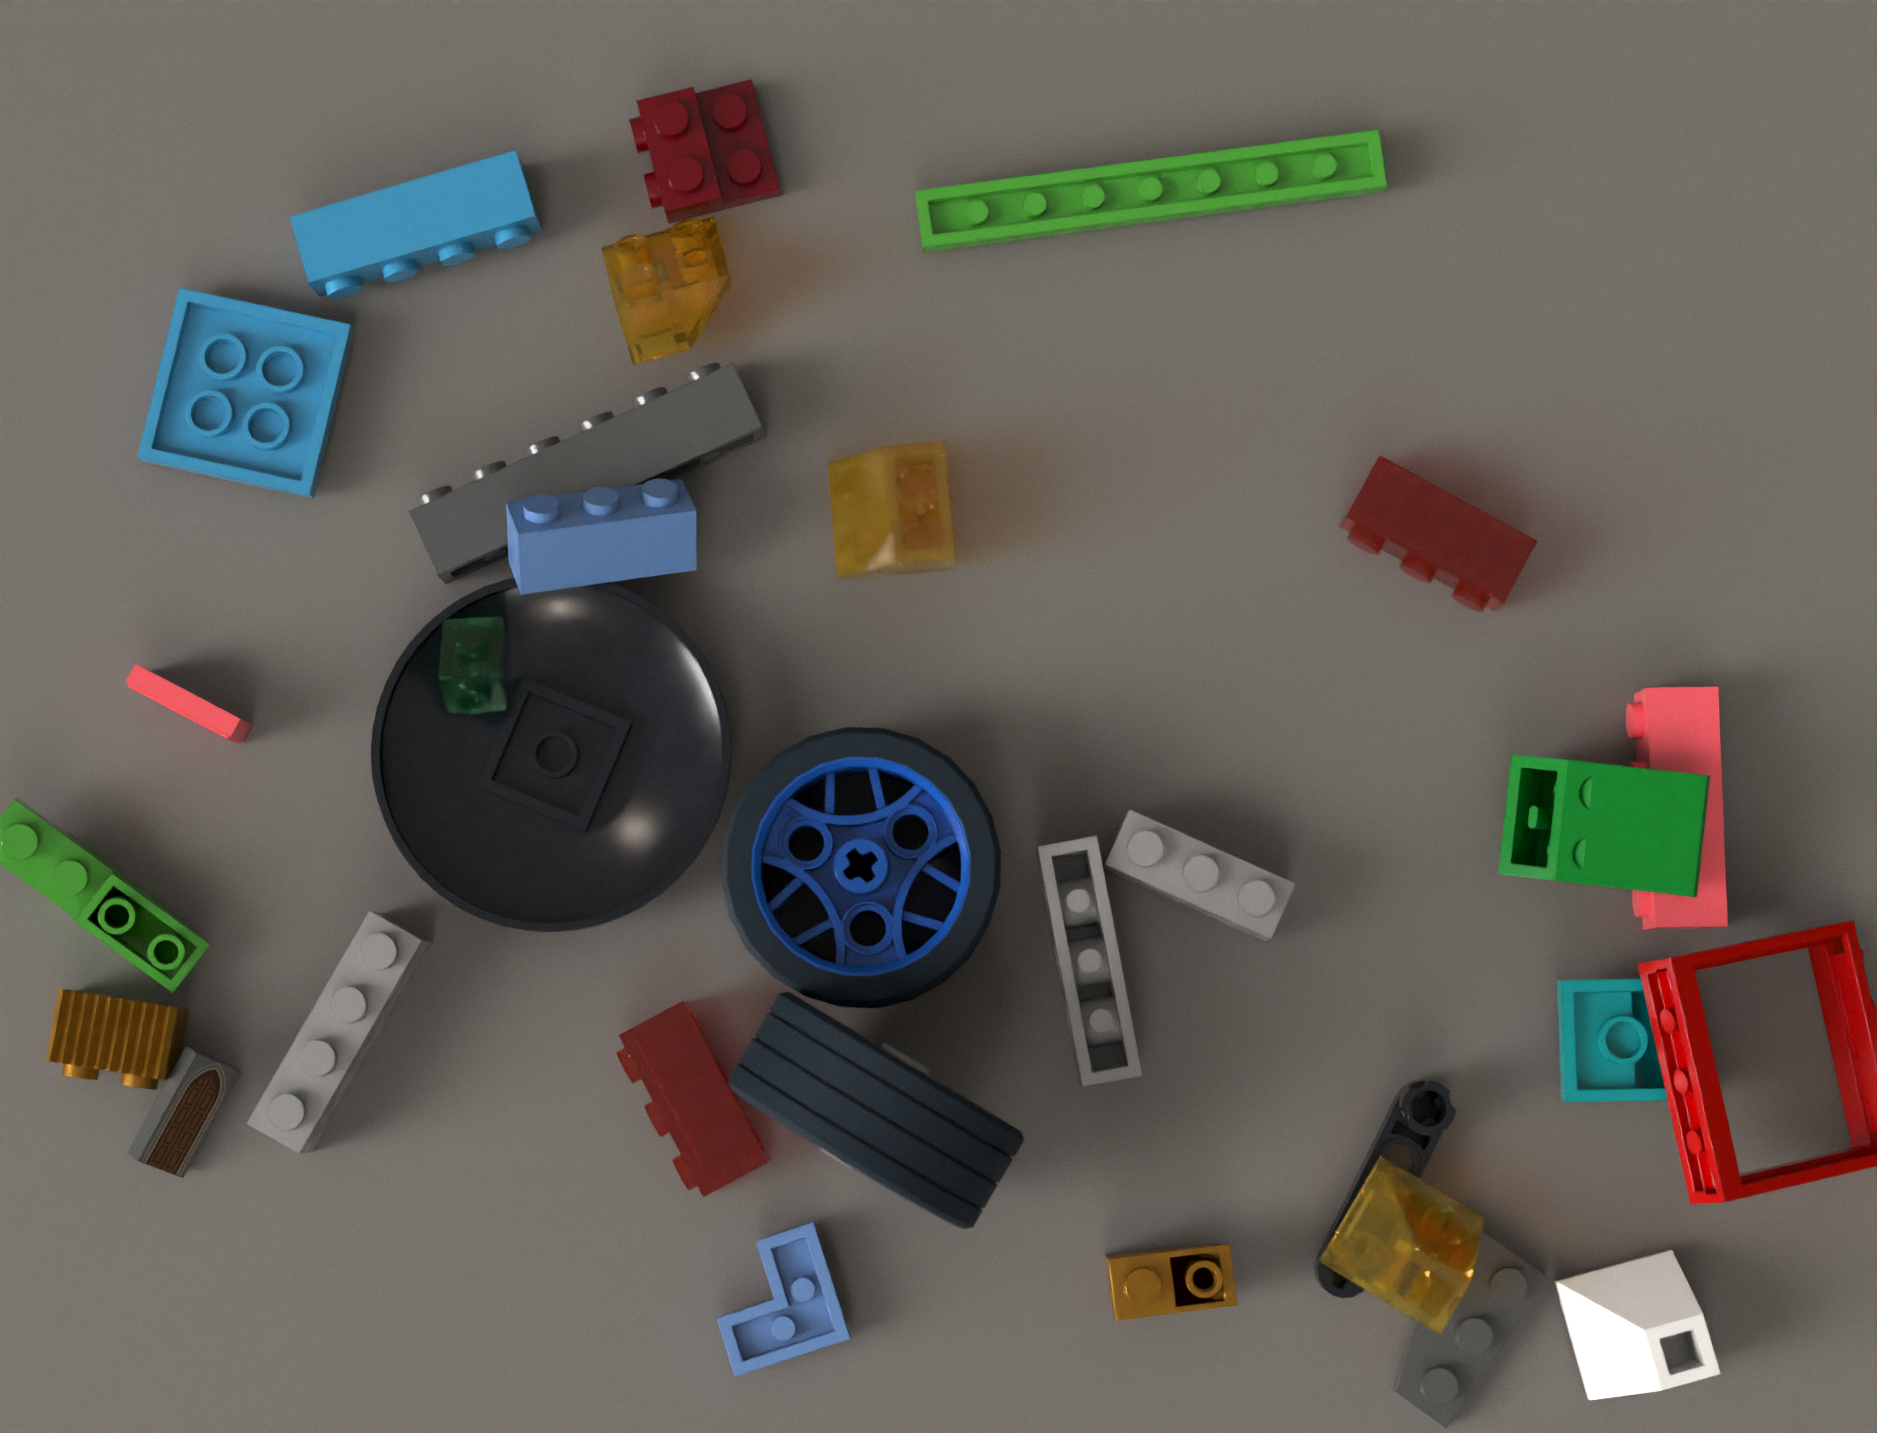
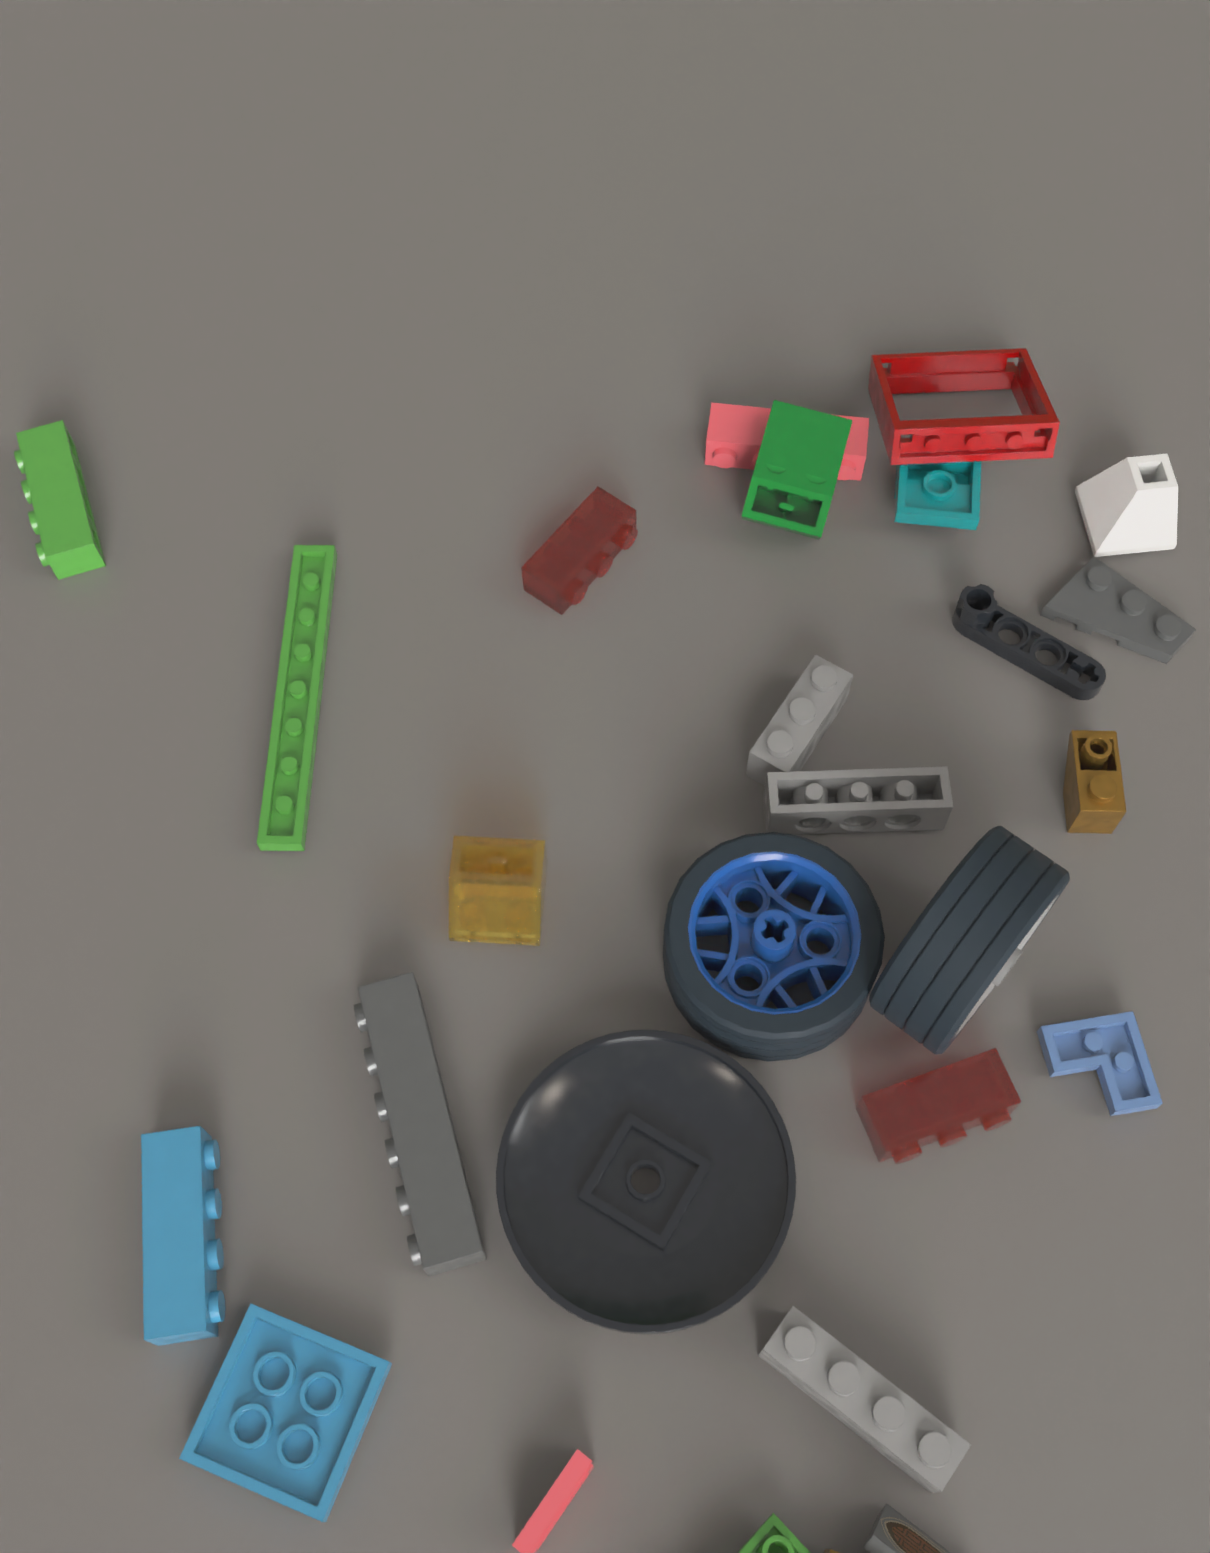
camera: 80 degrees left, 20 degrees down
(473, 665) = (565, 1223): clear green bracket -> none
(601, 535) = (475, 1108): medium blue brick -> none
(667, 286) = (284, 1035): clear yellow slope -> none
(705, 150) = (182, 996): dark red plate -> none
(1407, 1245) = (1077, 622): clear yellow slope -> none

